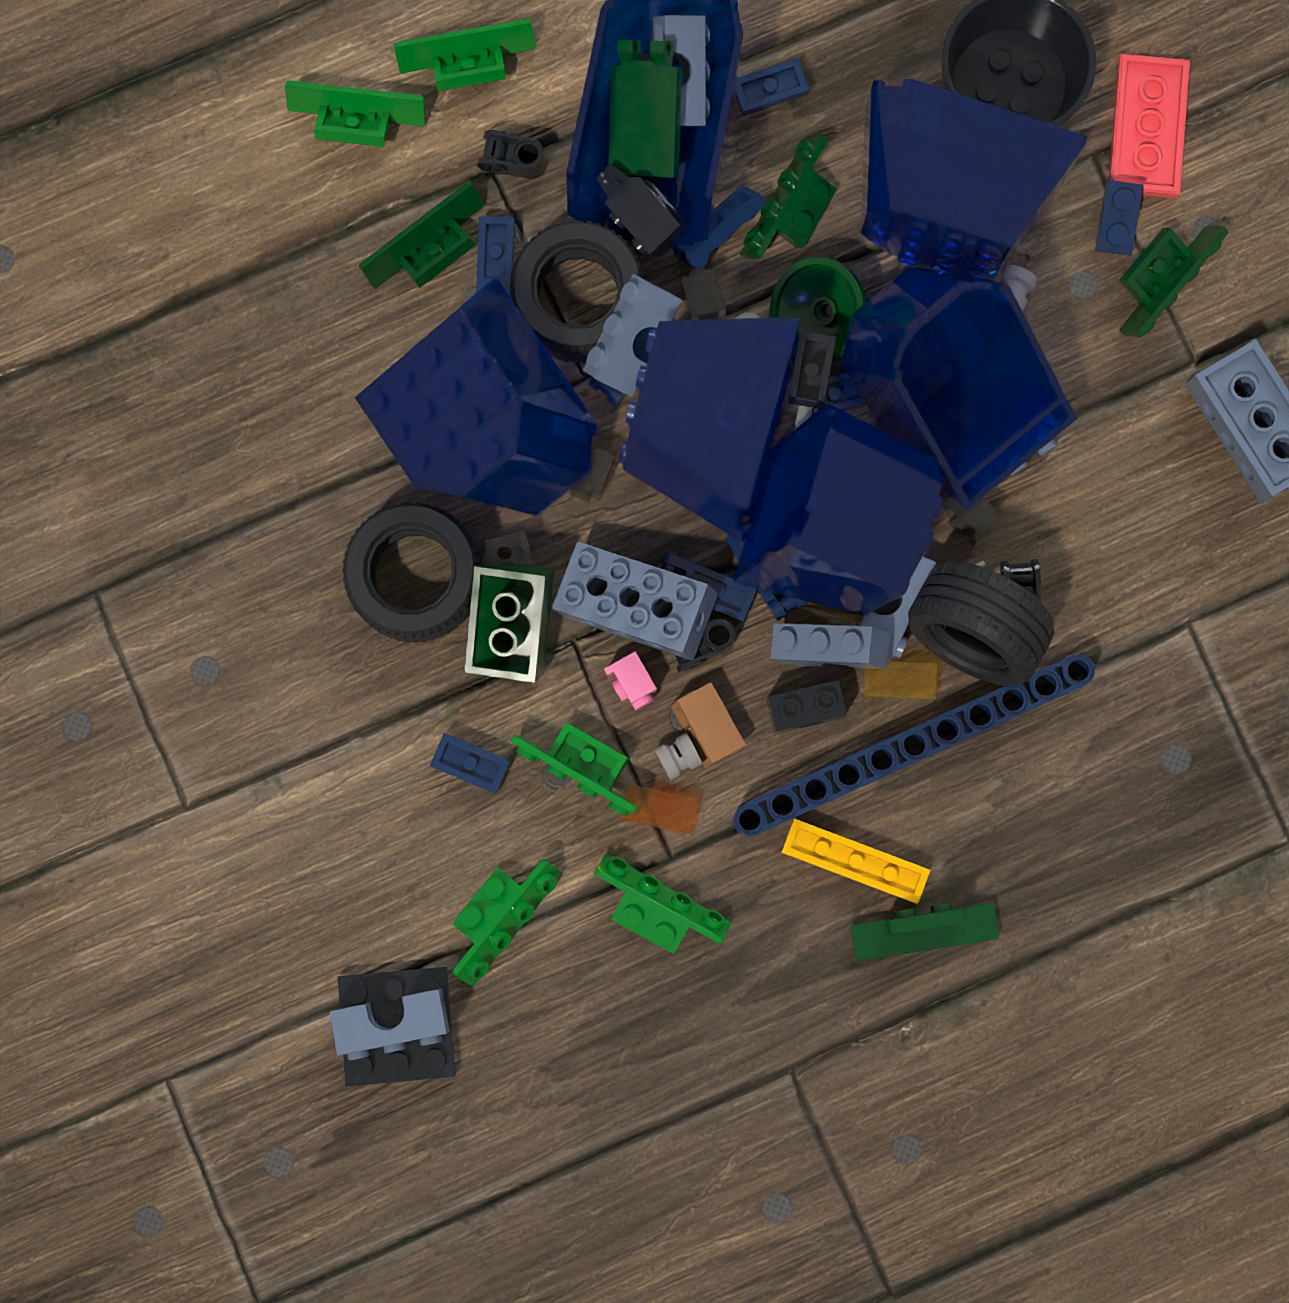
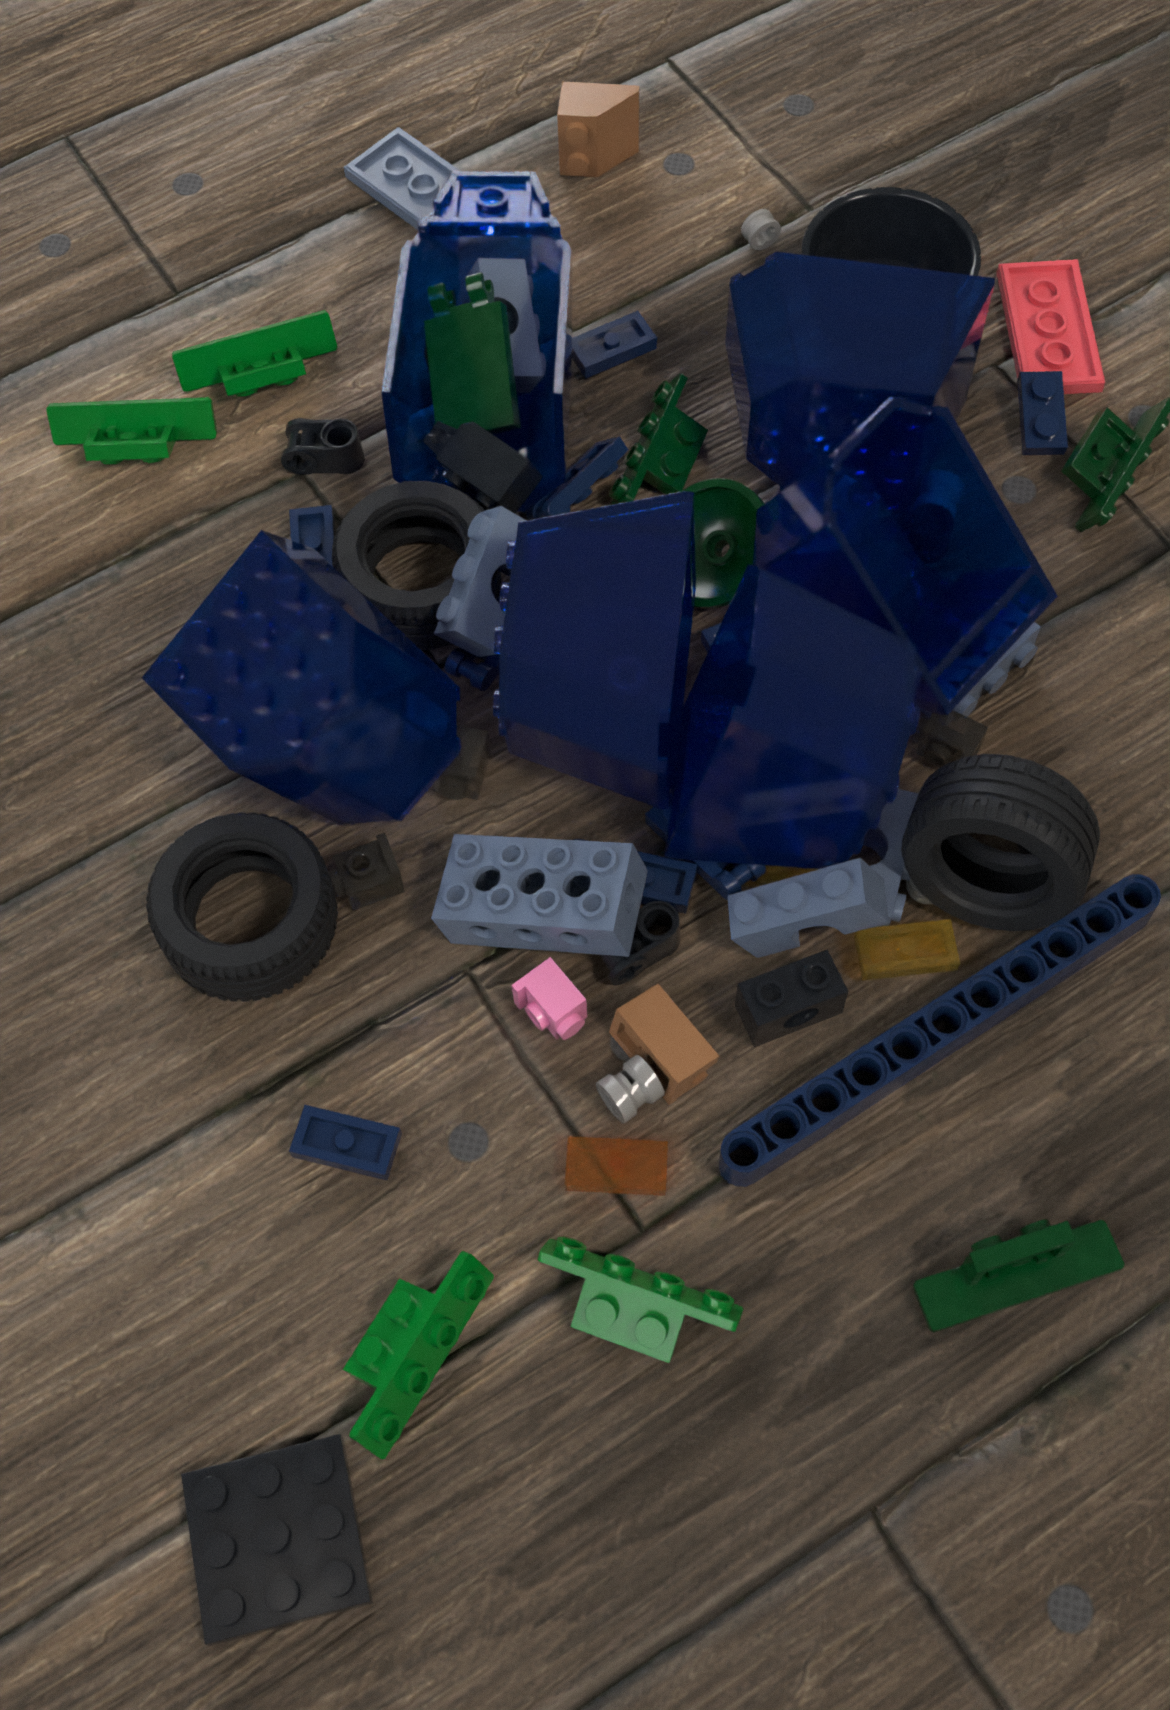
camera: 10 degrees left, 20 degrees down
(357, 1030) = (215, 1549): sand blue arch -> none
(428, 243) = (221, 541): dark green bracket -> none
(509, 621) = (376, 941): dark green slope -> none
(584, 760) = (504, 1111): green bracket -> none
(811, 374) = (716, 583): black hinge -> none
(855, 861) = (900, 1191): yellow plate -> none

